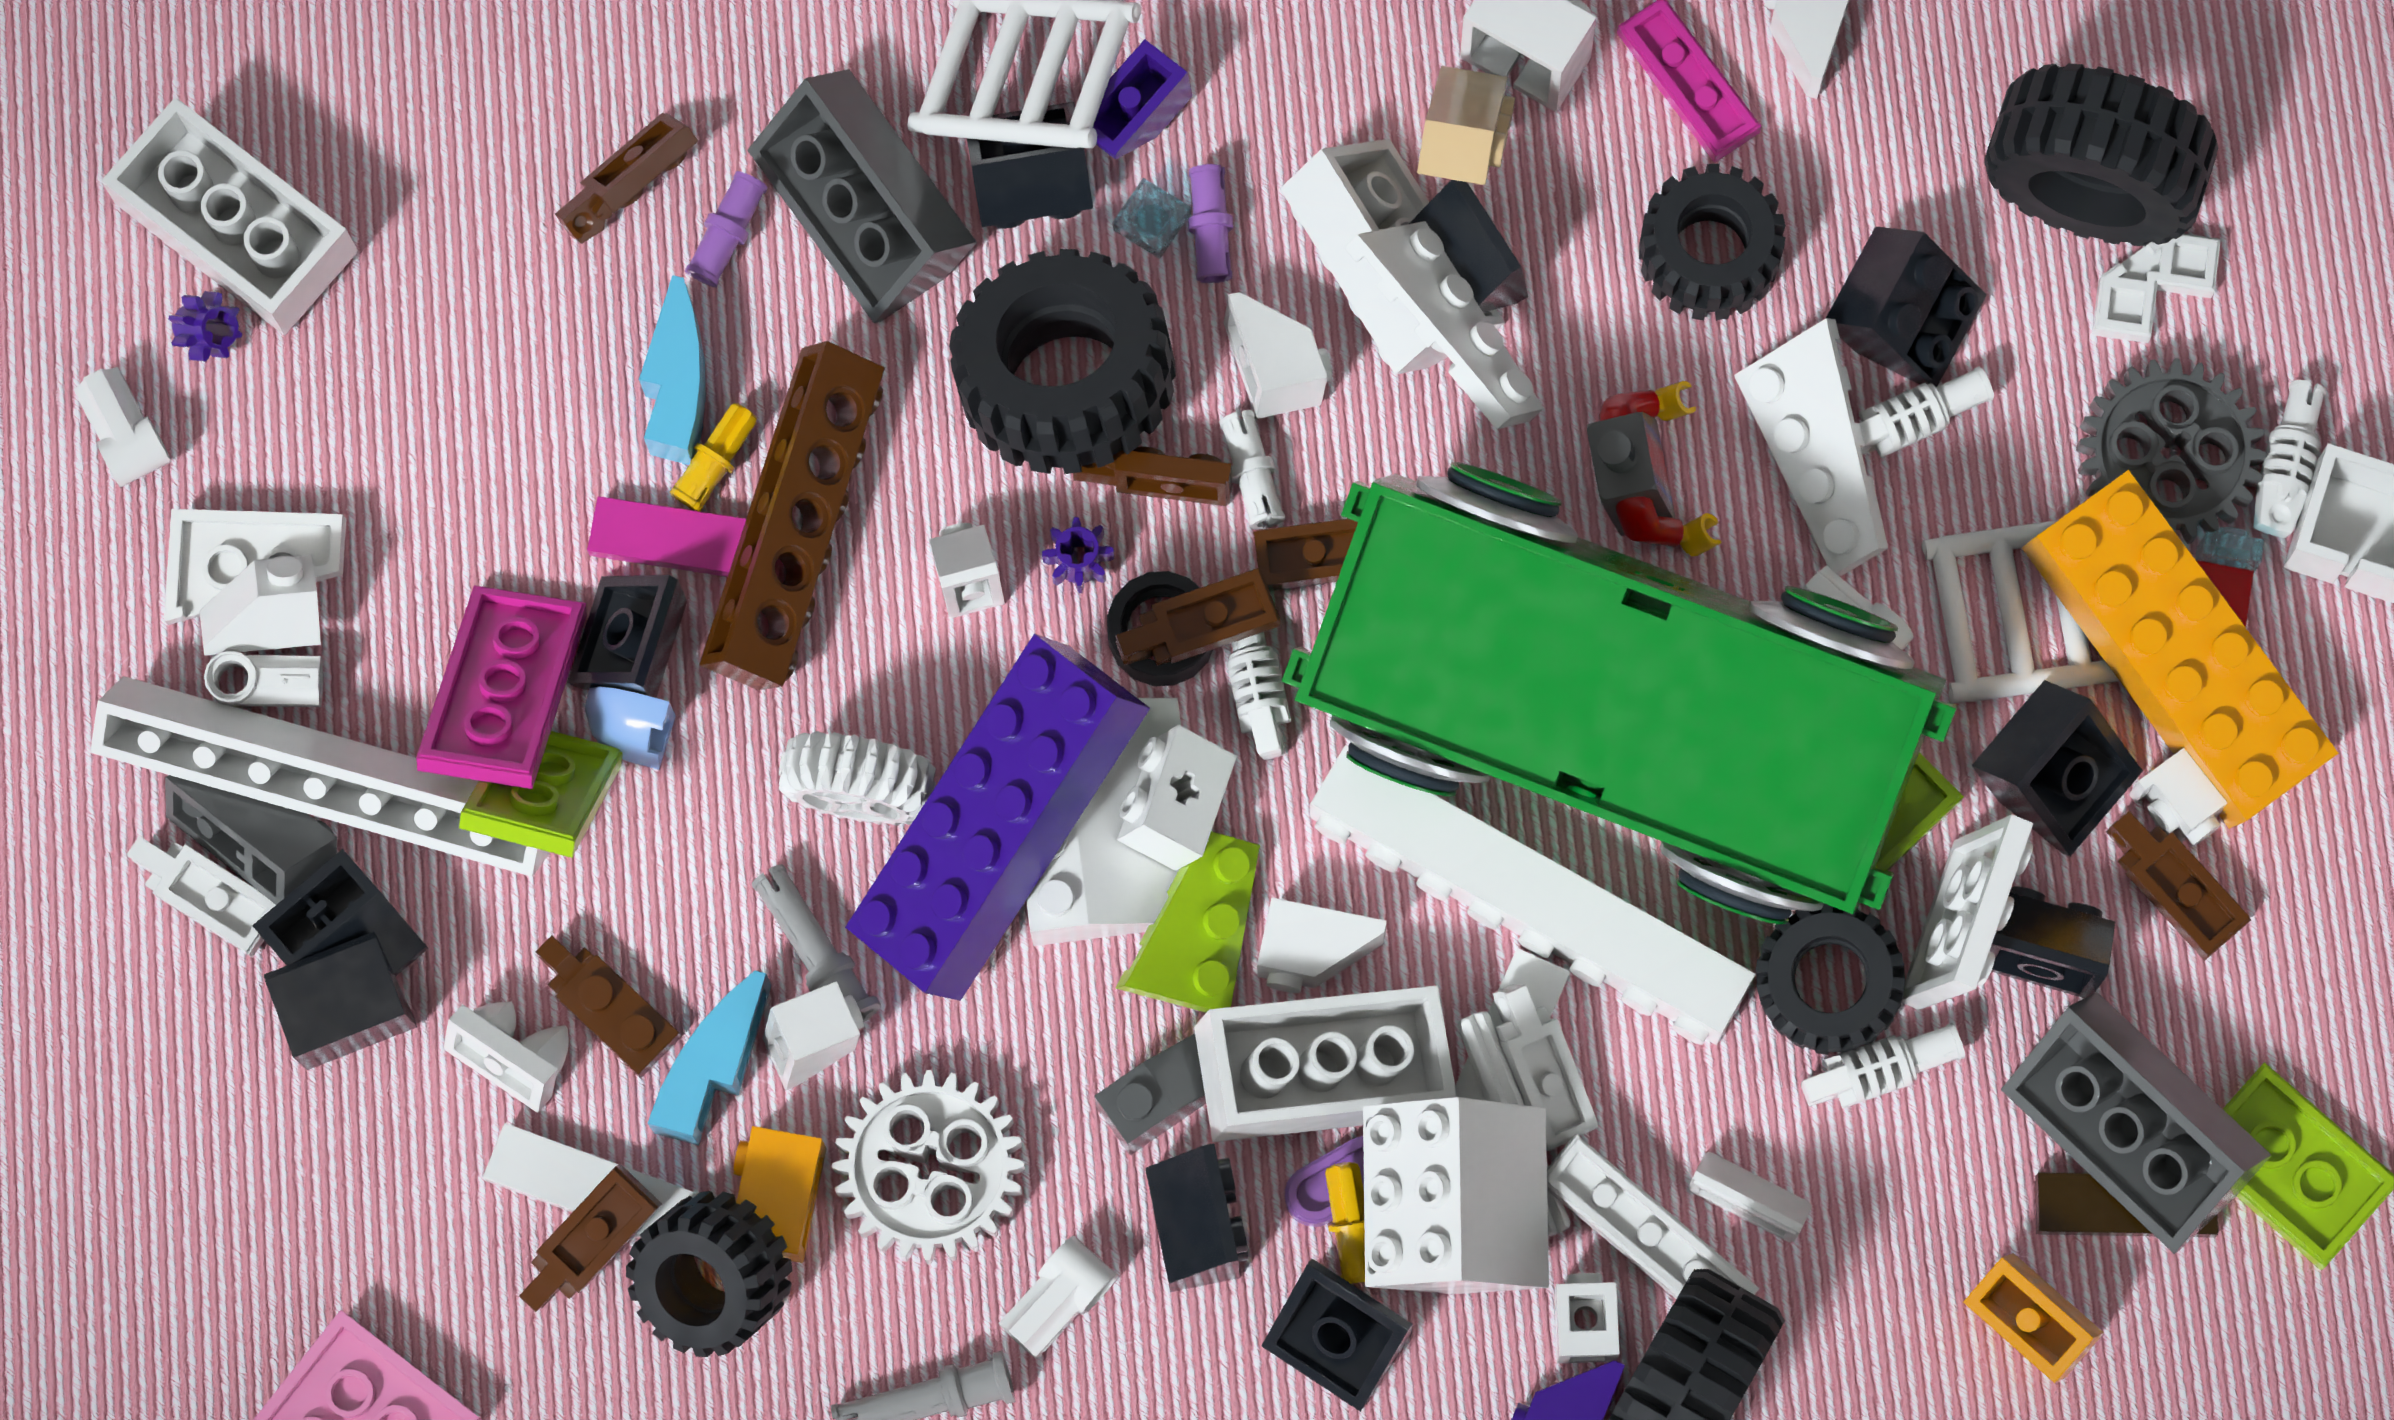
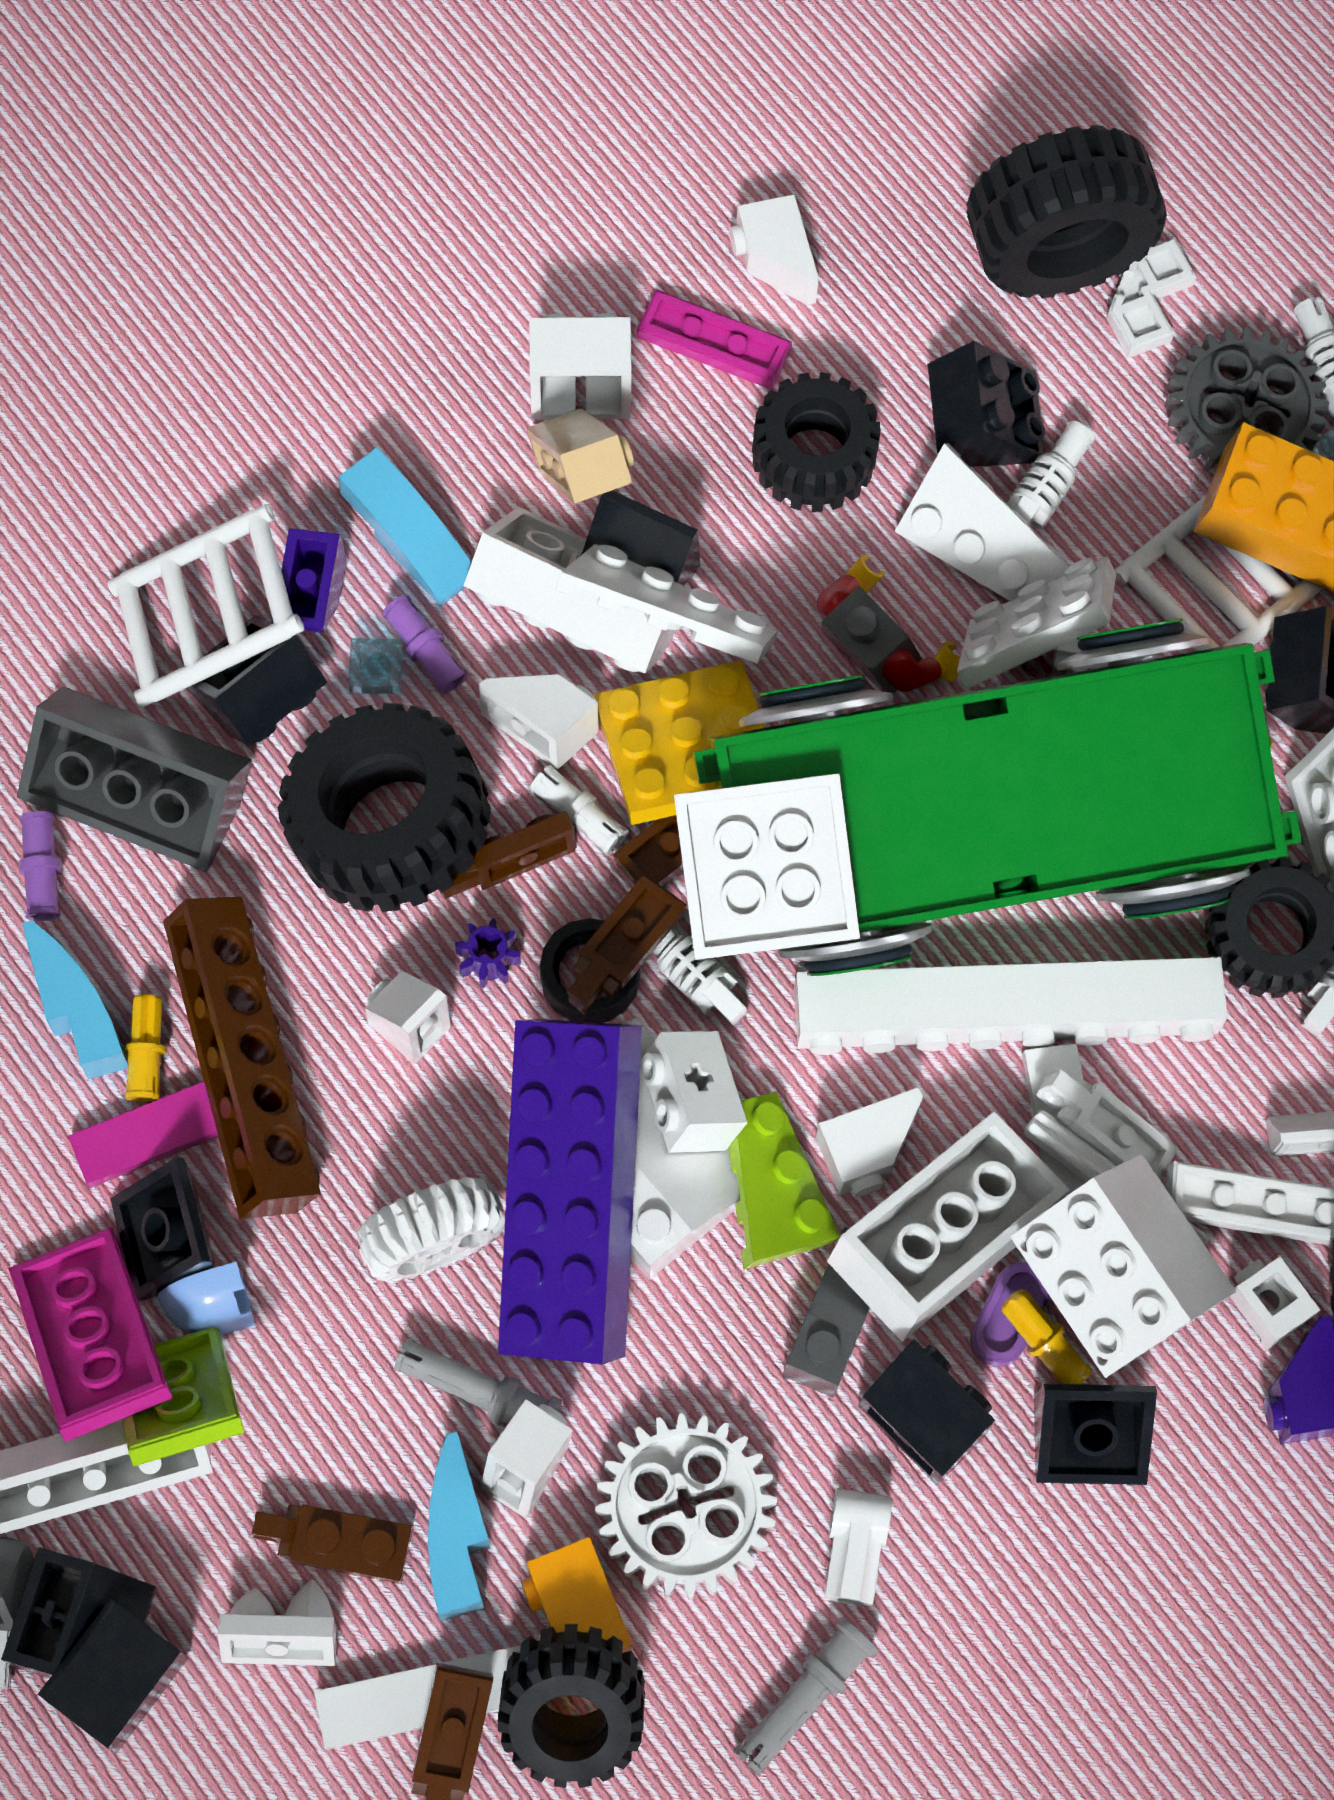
camera: 40 degrees left, 5 degrees down
(1265, 96) = (406, 525): none -> medium azure slope
(1348, 629) = (766, 866): none -> white plate
(1378, 431) = (661, 723): none -> yellow plate
(1790, 546) = (1037, 620): none -> white plate

